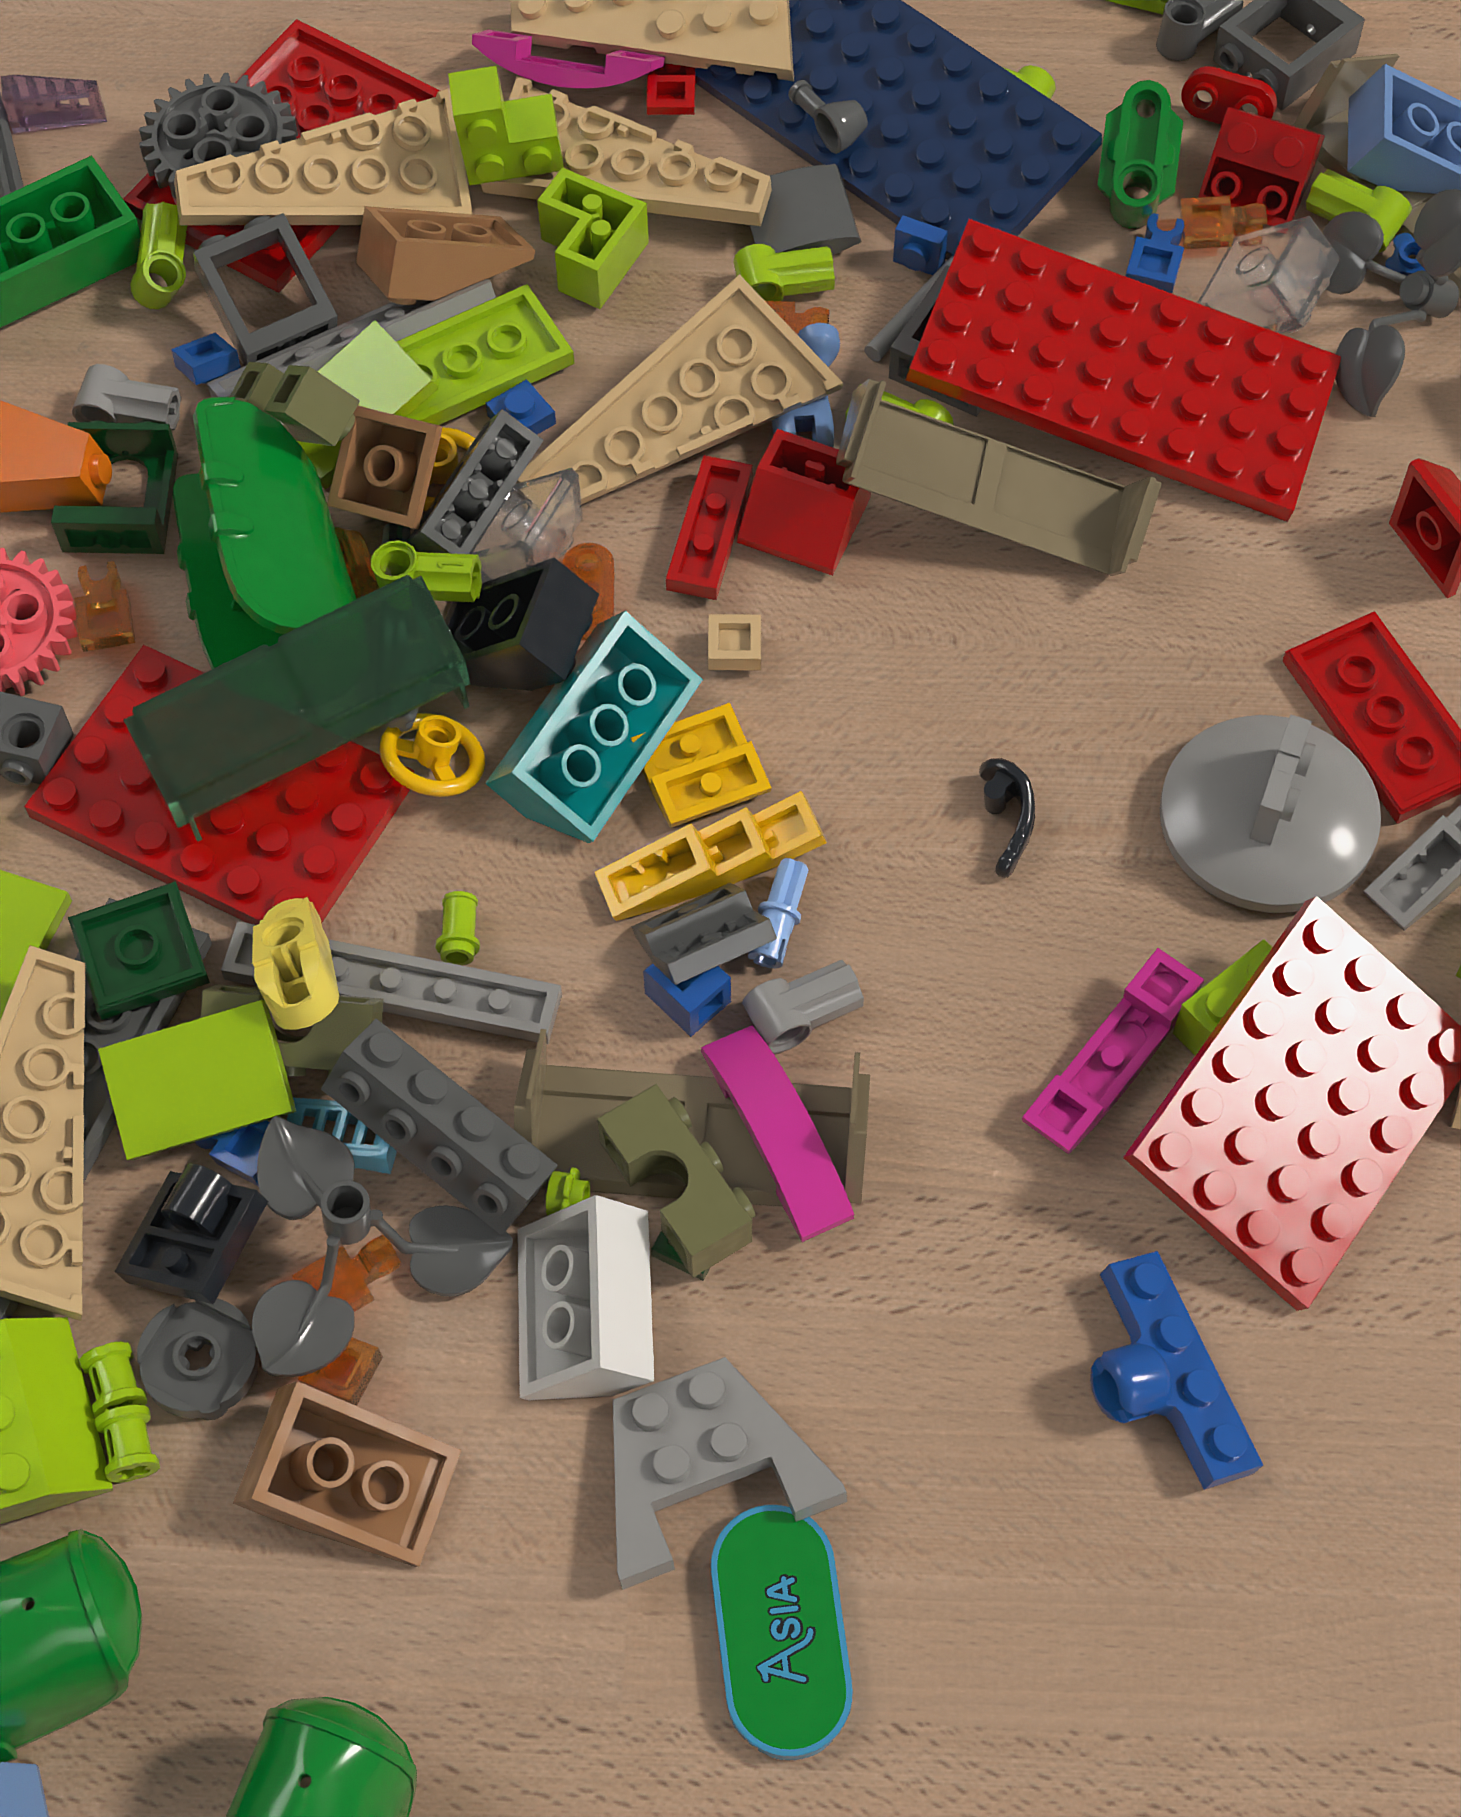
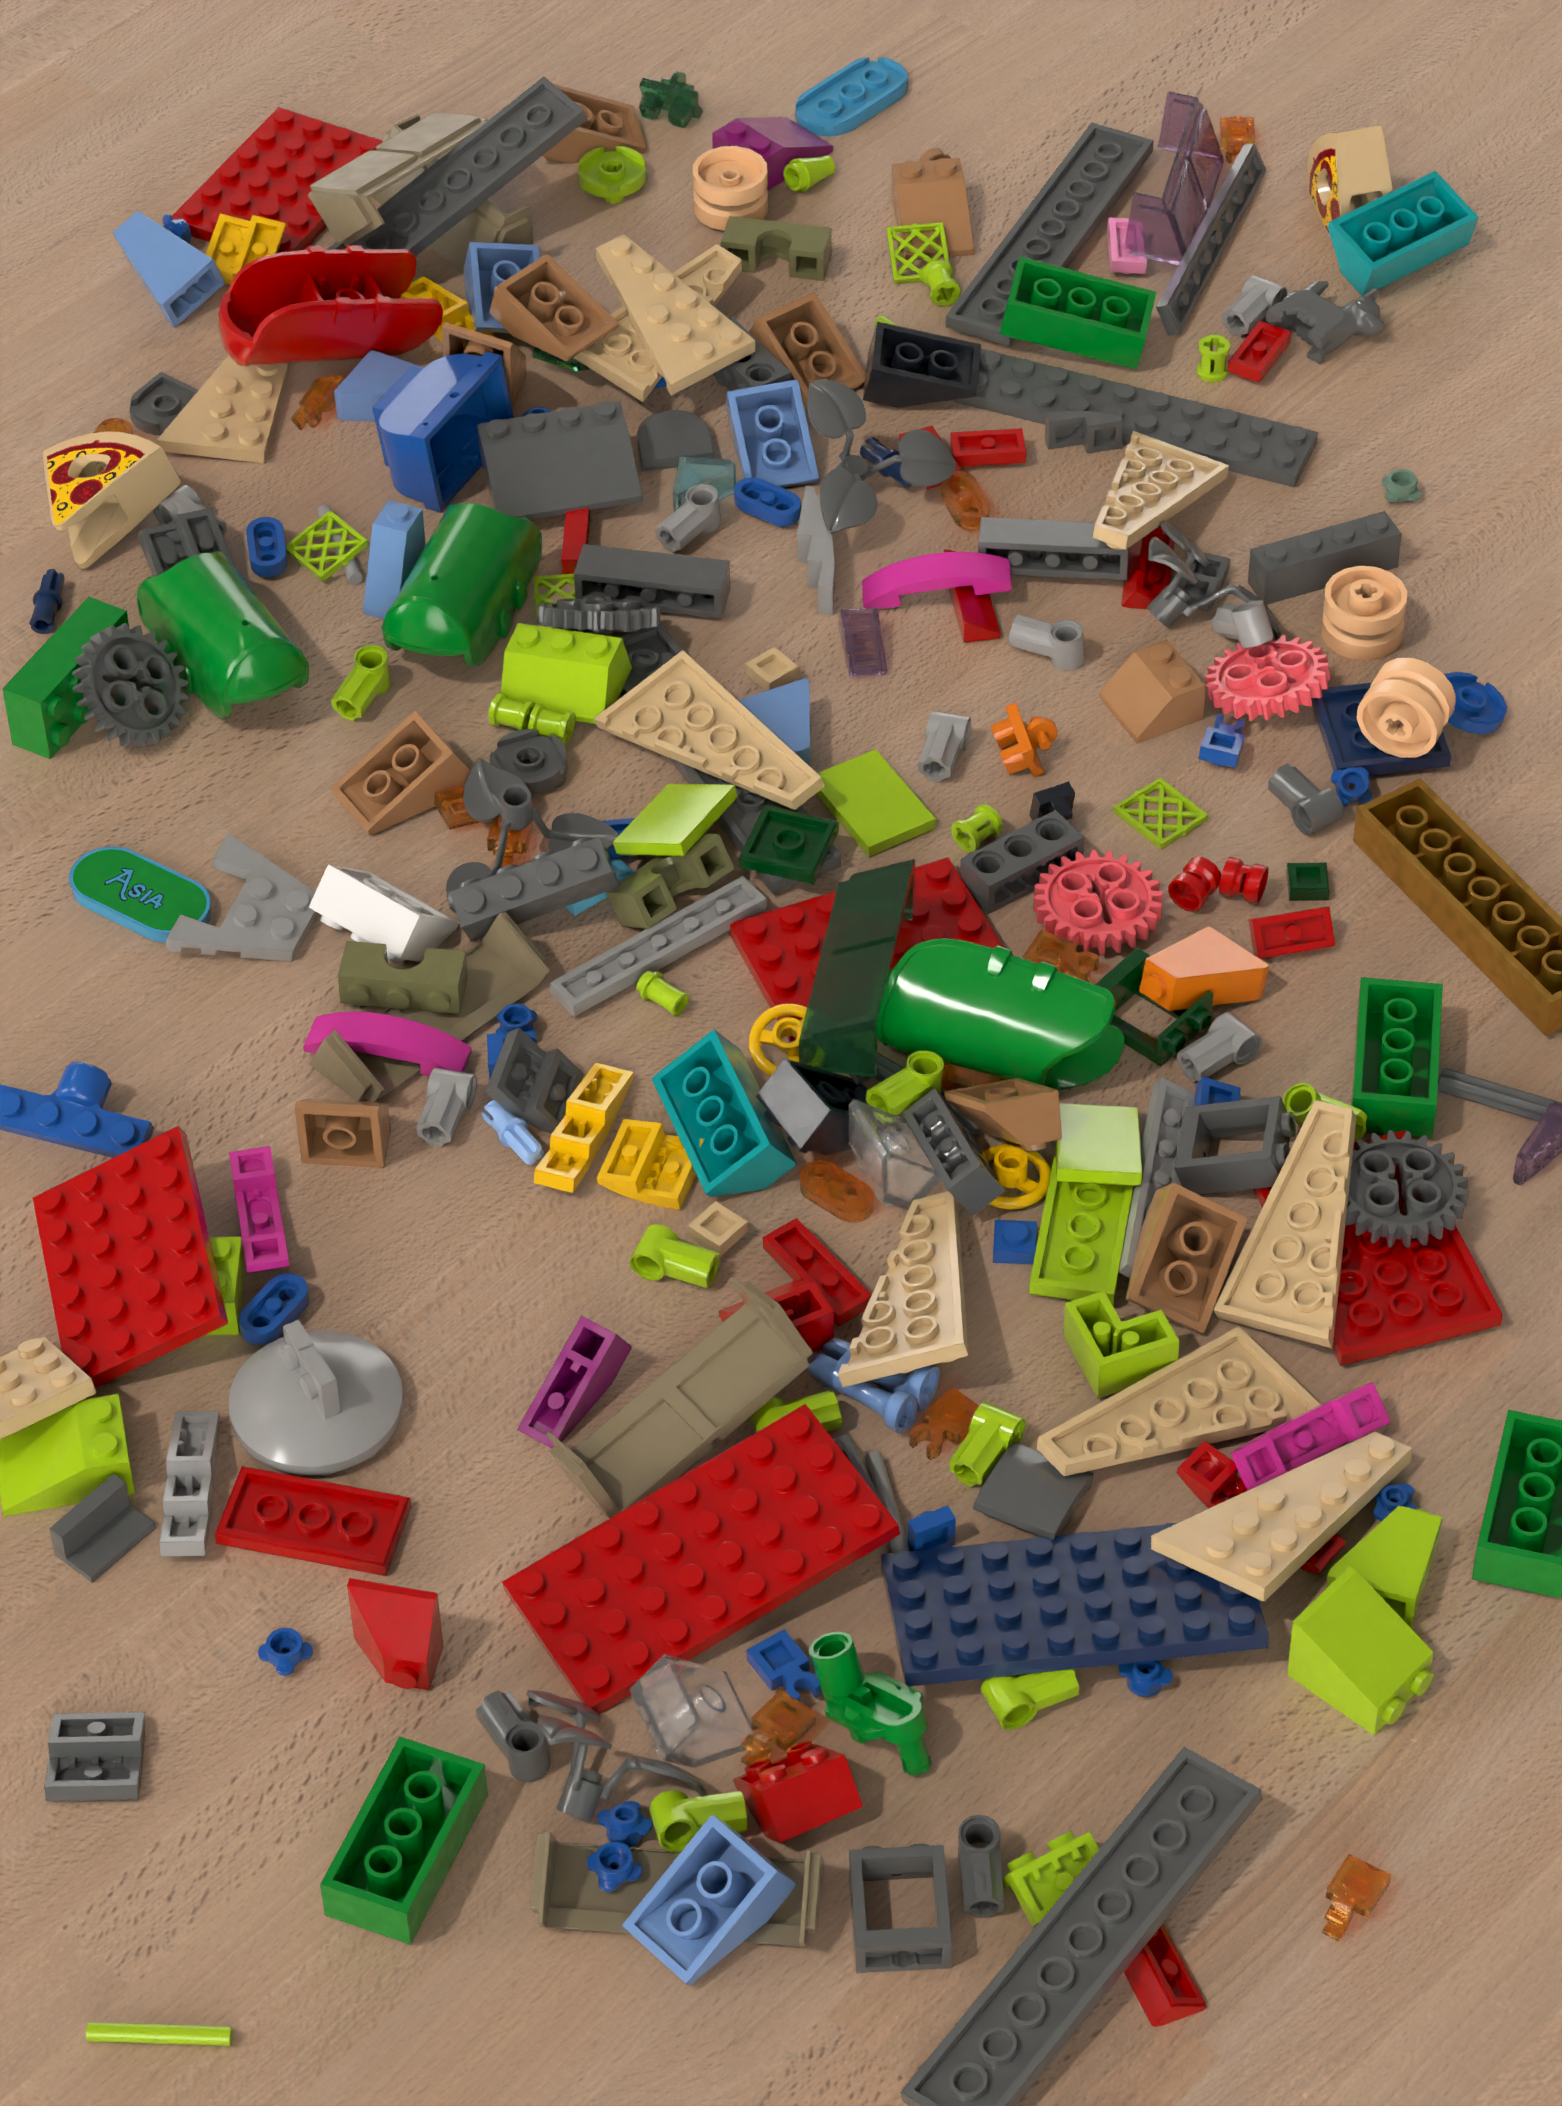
camera: 130 degrees right, 15 degrees down
(192, 1234) = (593, 783): black plate -> none
(217, 1672) = (363, 683): none -> lime piece
(294, 965) = (696, 878): light yellow piece -> none
(300, 399) = (1115, 1085): olive arch -> none
(502, 136) = (1247, 1327): lime brick -> none
(565, 1190) = (450, 937): lime plate -> none
(624, 1022) = (515, 1017): none -> blue plate
(809, 657) = (664, 1254): none -> lime piece
(835, 122) = (1076, 1528): dark grey bar -> none
(935, 1055) = (343, 1132): none -> medium nougat slope
(1003, 783) = (470, 1294): black piece -> none
(1026, 611) = (575, 1381): none -> magenta slope
(1203, 938) = (267, 1312): none -> blue plate
(1226, 90) = (894, 1809): red plate -> none
(1426, 381) = (515, 1736): none -> dark grey piece

